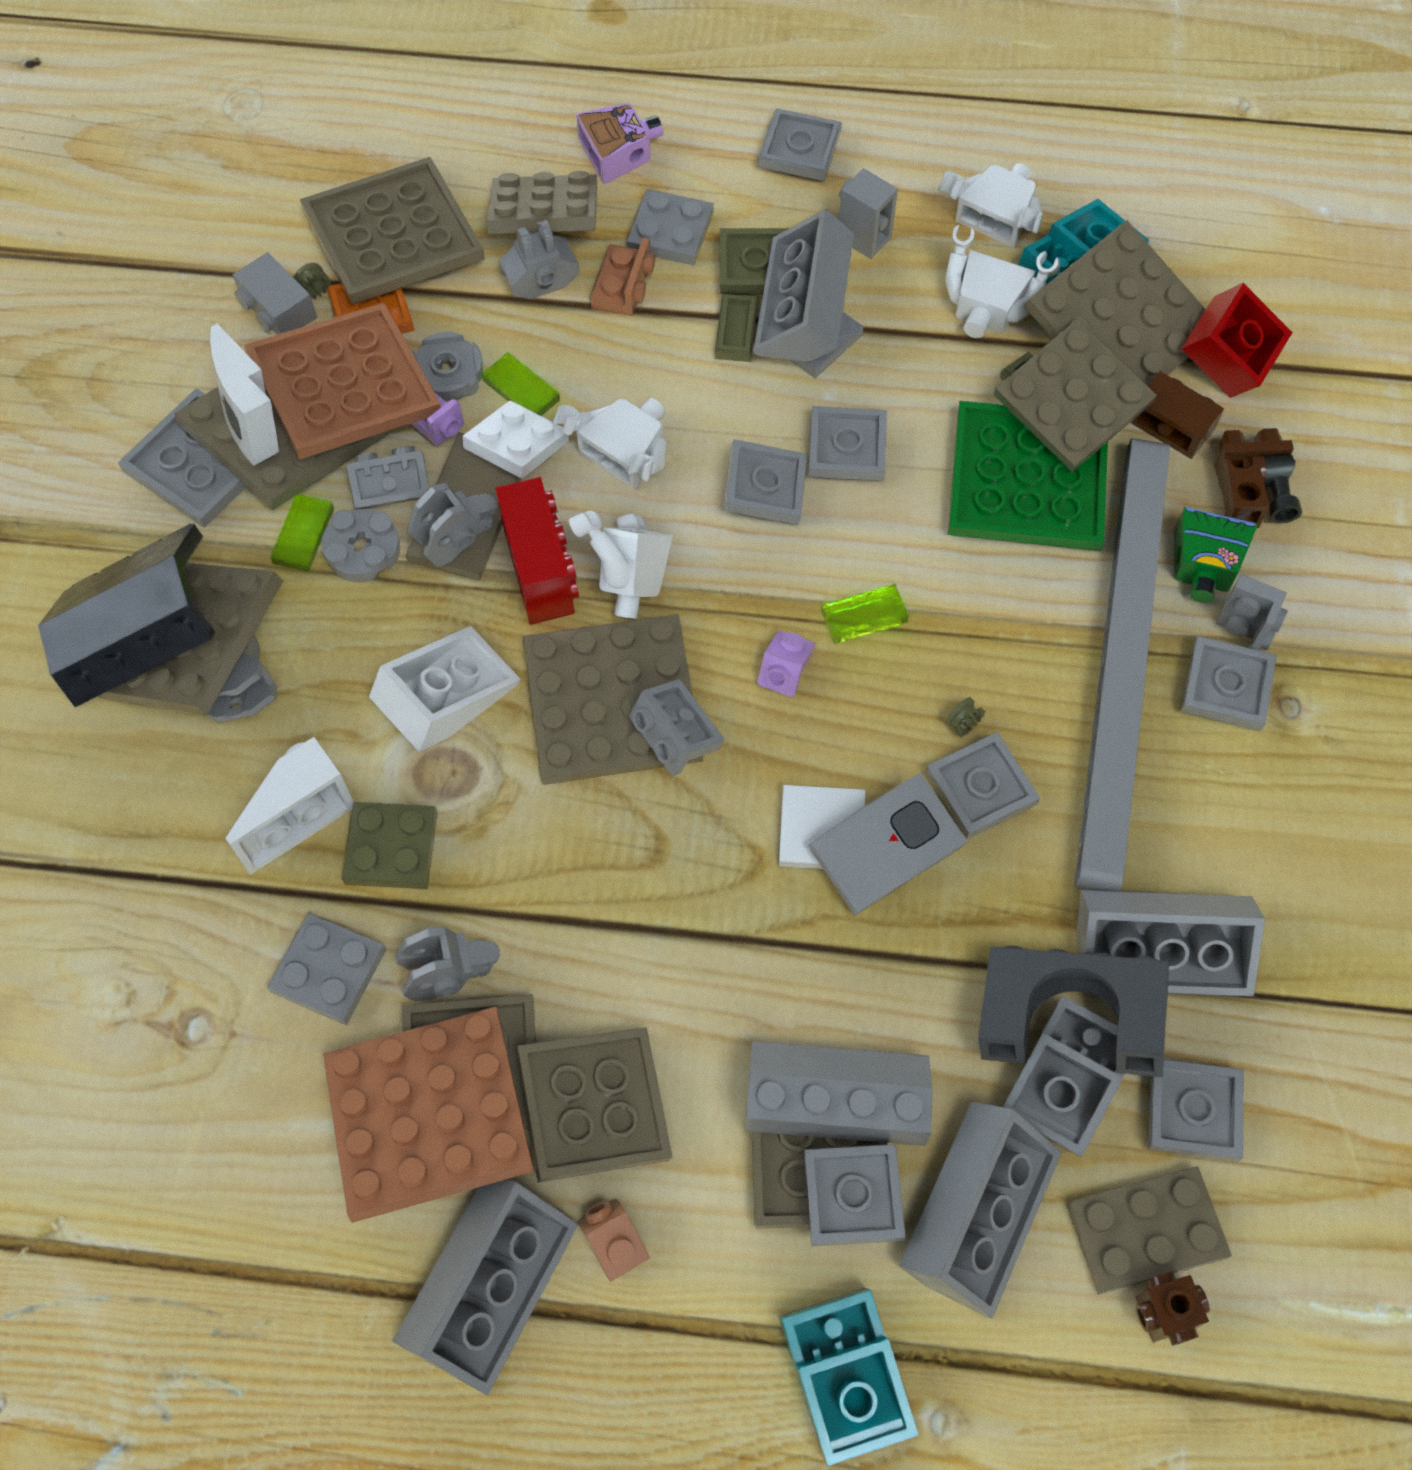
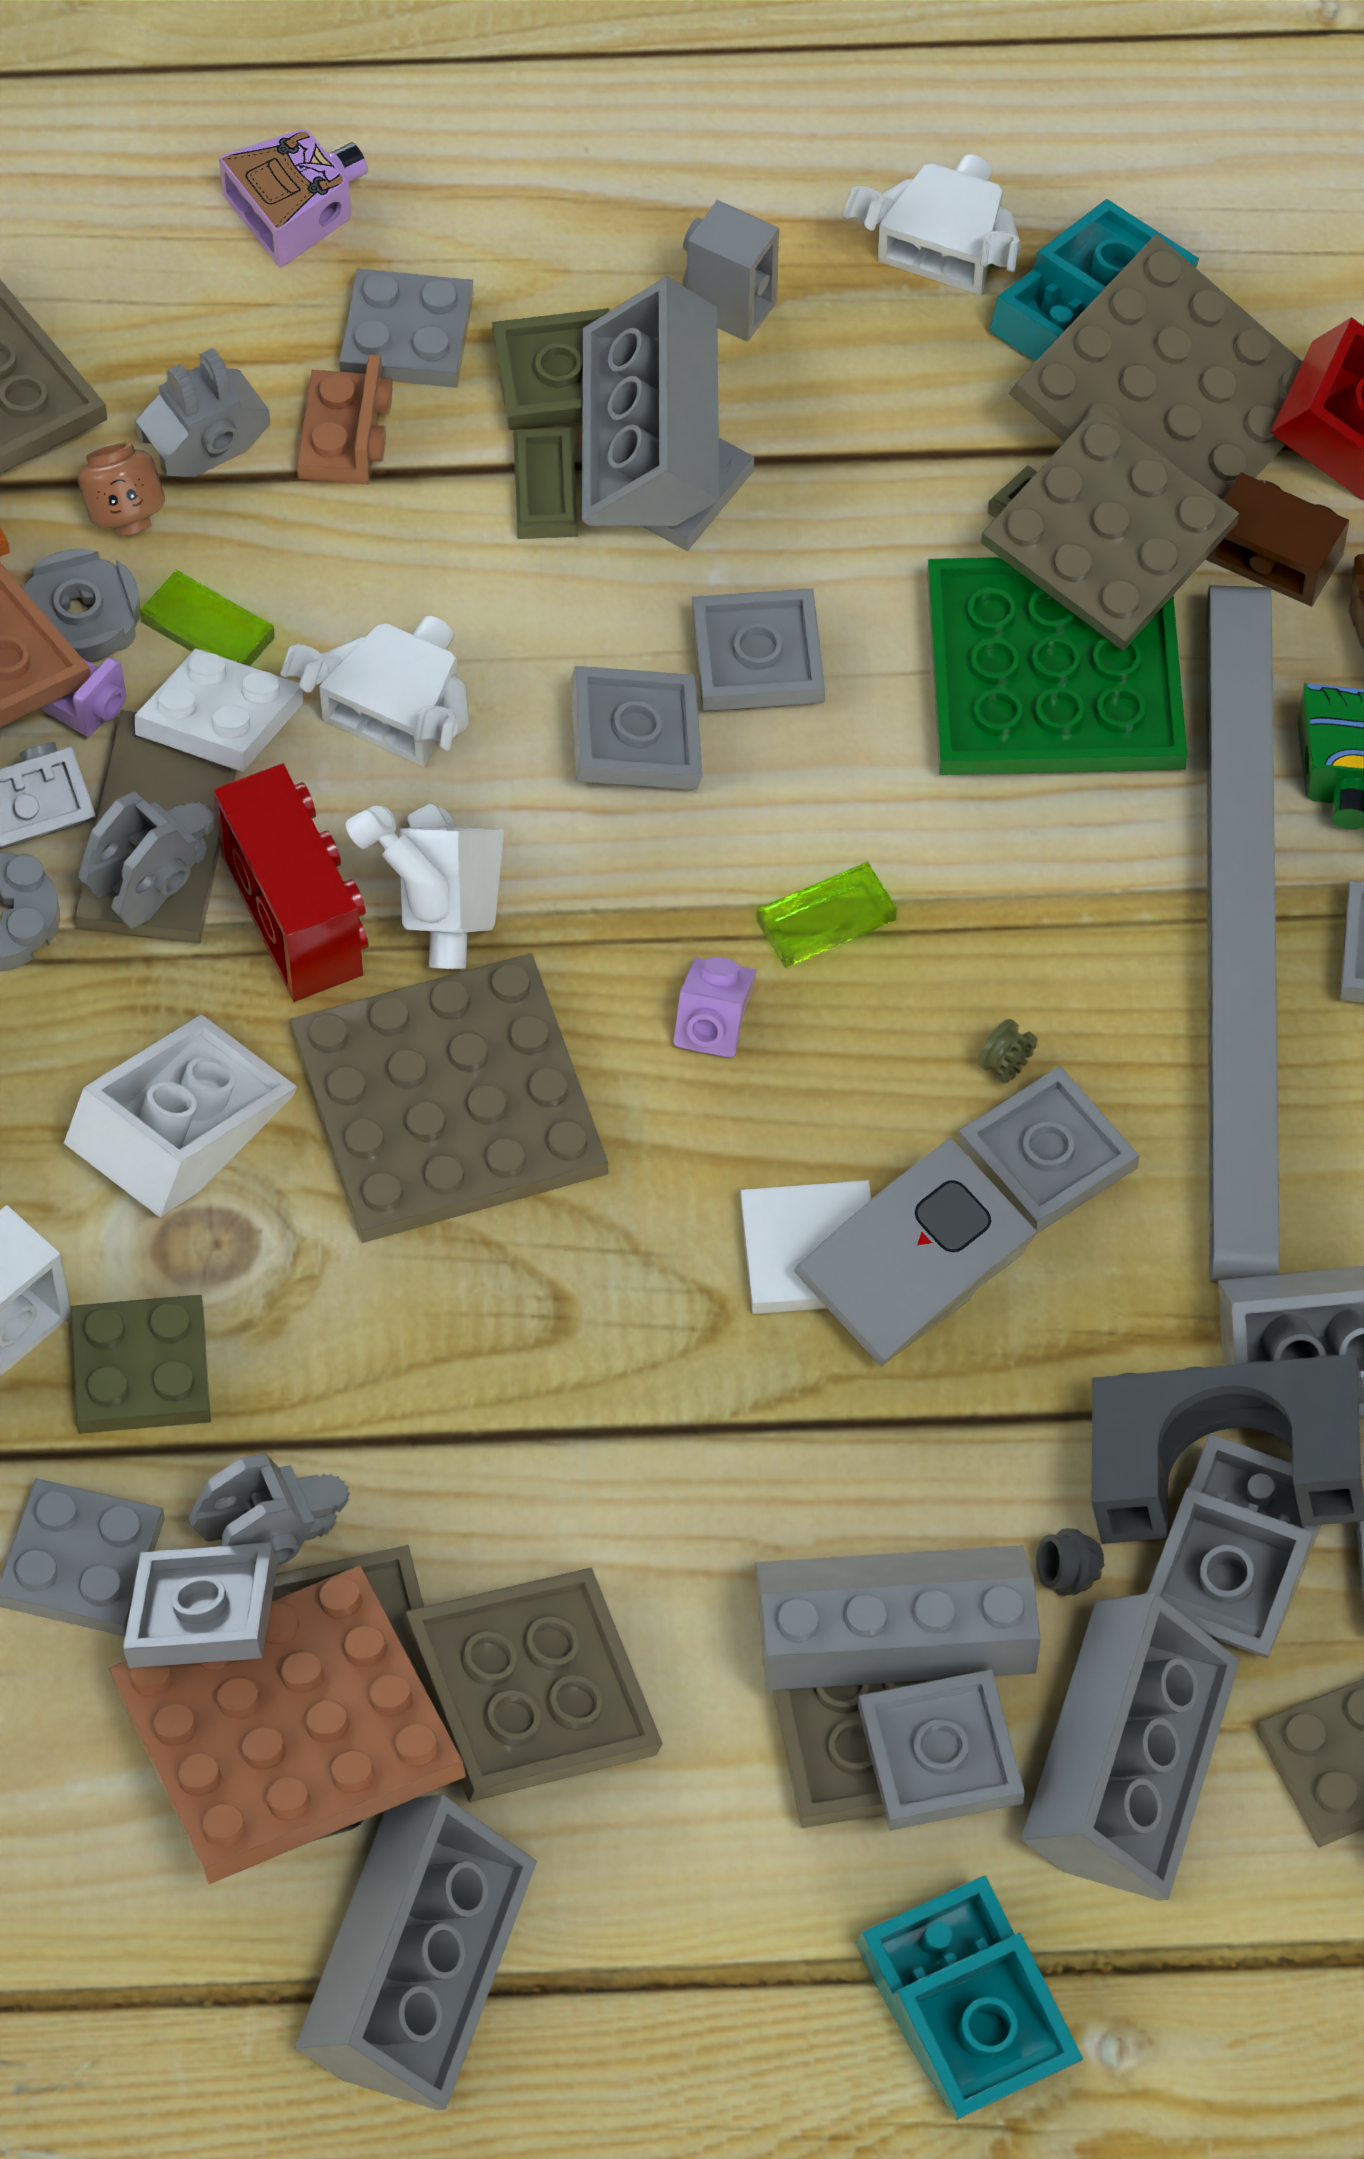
camera: 10 degrees left, 5 degrees down
(384, 1024) = (200, 1605): none -> light grey plate
(483, 299) = (121, 488): none -> nougat head
(561, 200) = (187, 309): dark tan plate -> none
(613, 1238) = (594, 1868): nougat bracket -> none
(674, 725) = (558, 1120): light grey bracket -> none
(800, 144) = (600, 162): light grey plate -> none
(957, 1068) = (1069, 1561): none -> dark grey plate
(989, 289) = (952, 371): white torso -> none

